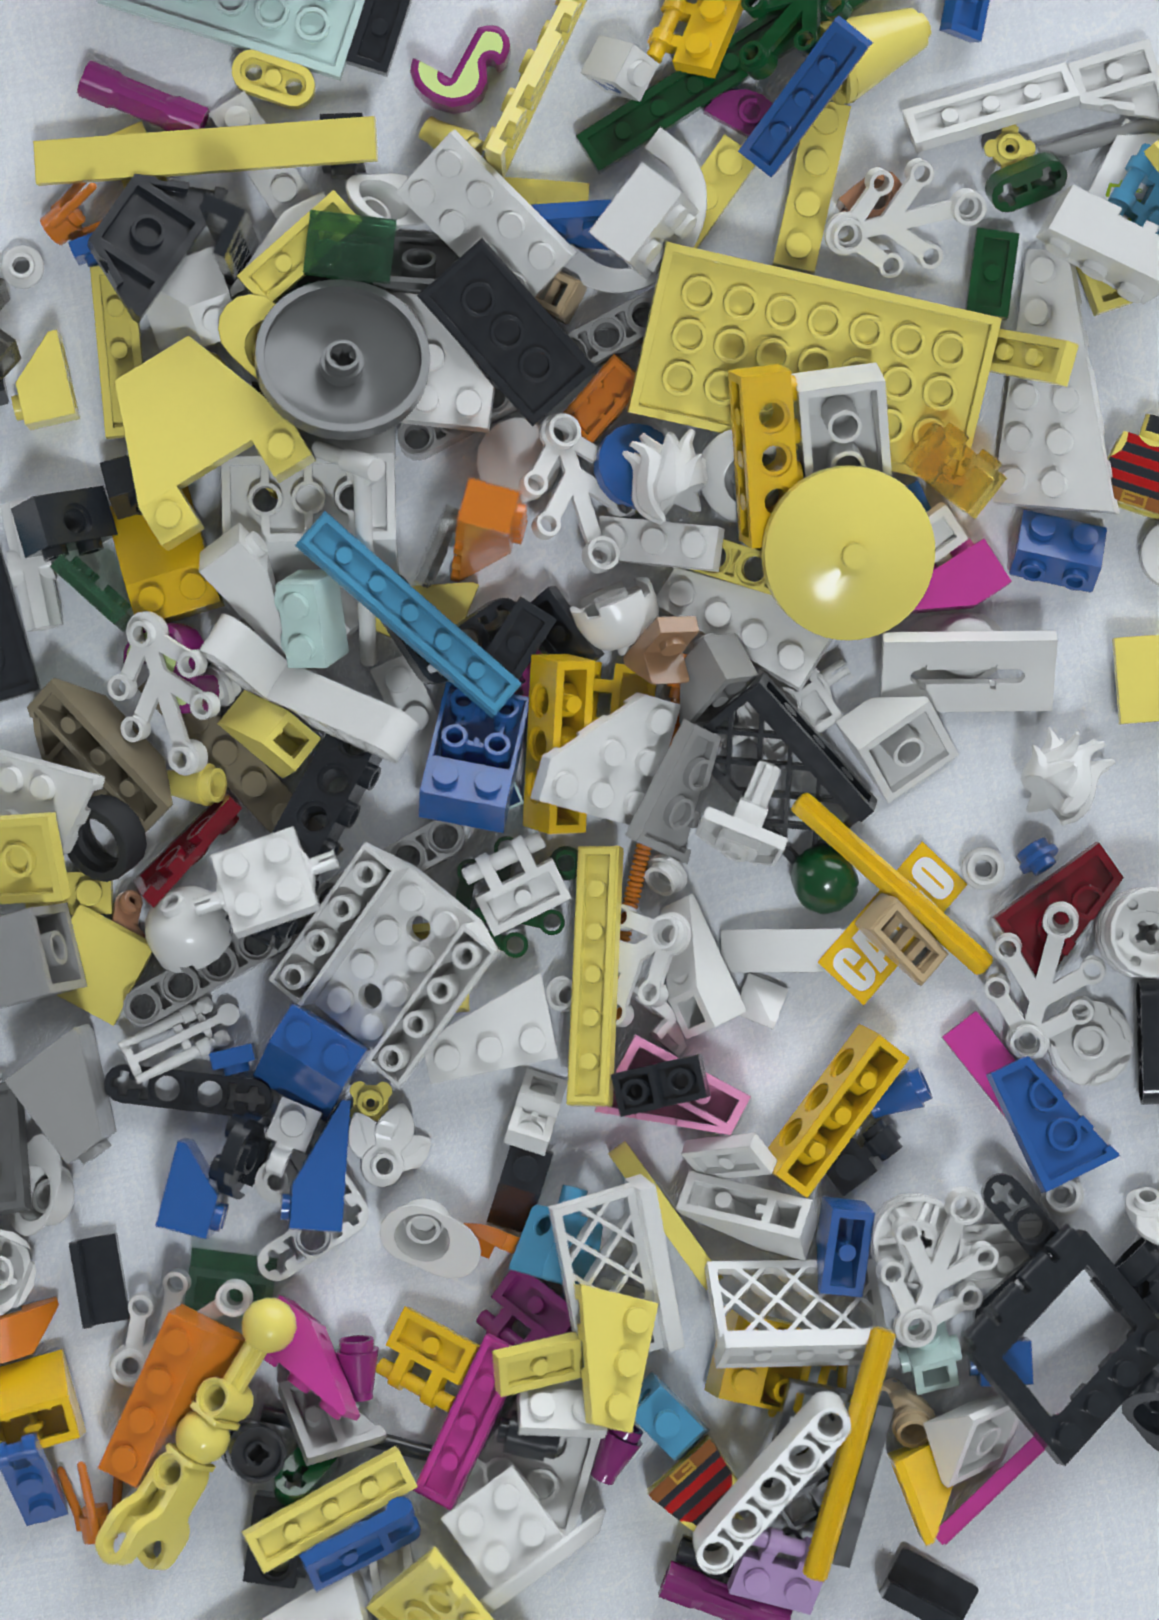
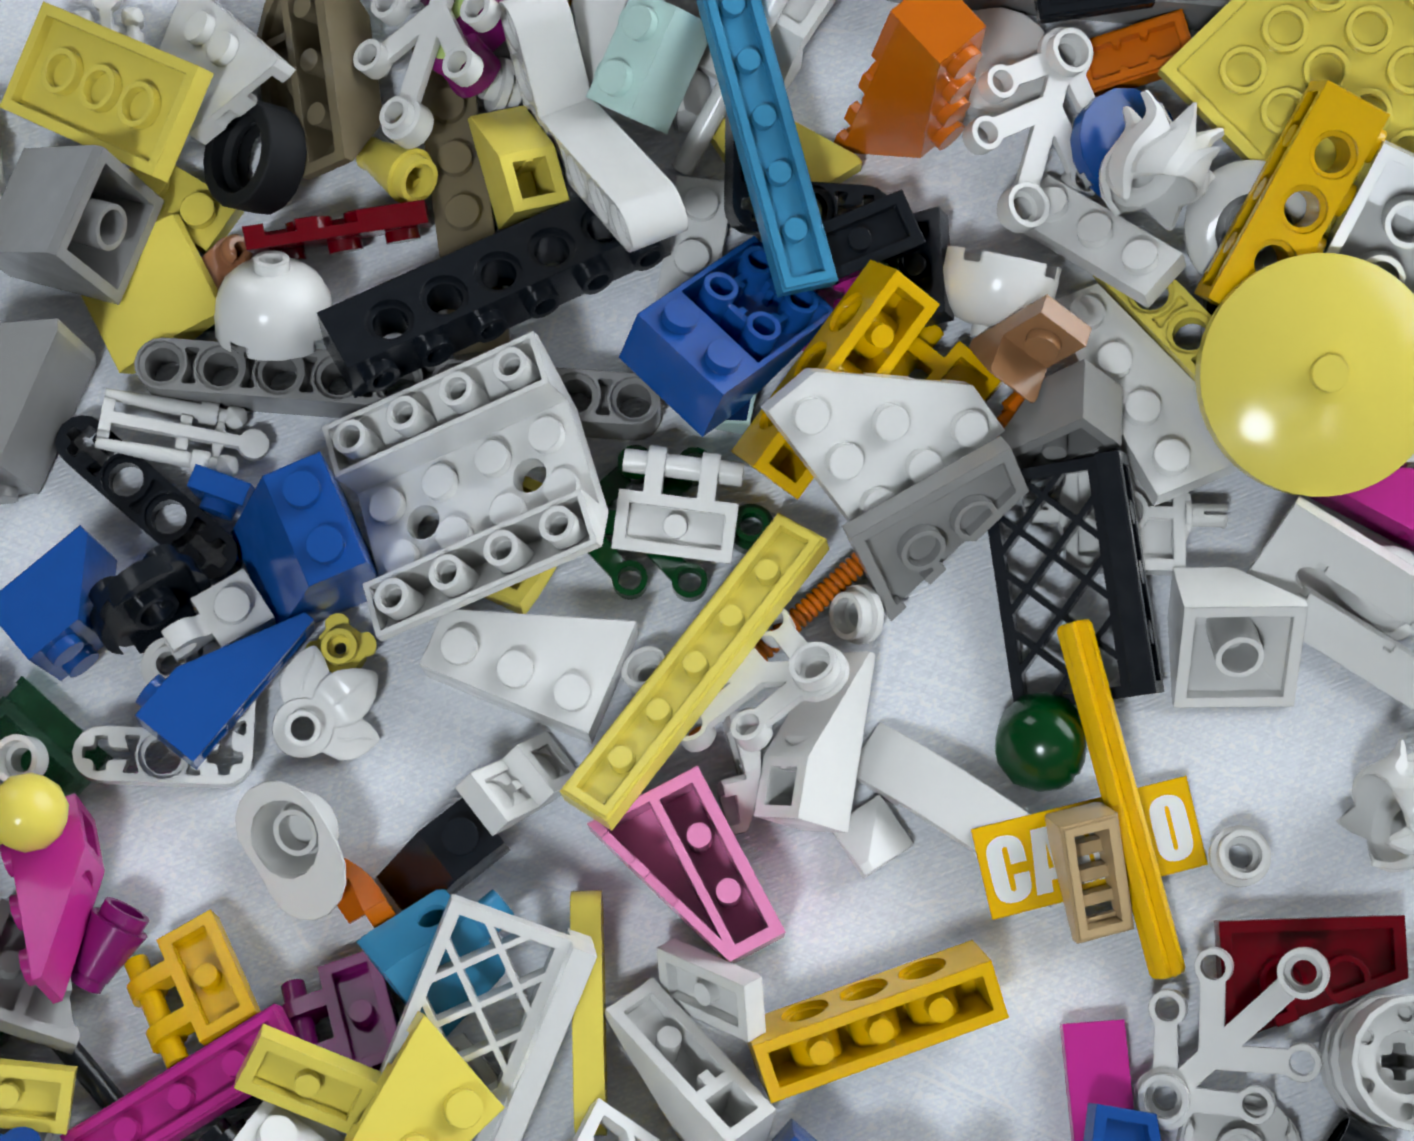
camera: 40 degrees right, 10 degrees down
(265, 882) = (389, 300): white plate -> none
(437, 547) = (833, 87): clear smoke tile -> none
(660, 1085) = (686, 842): black slope -> none
(742, 835) = (982, 618): white piece -> none
(853, 1162) = (853, 1103): black plate -> none
(904, 1094) = (971, 1059): blue cone -> none
(1037, 857) = (1316, 884): blue plate -> none

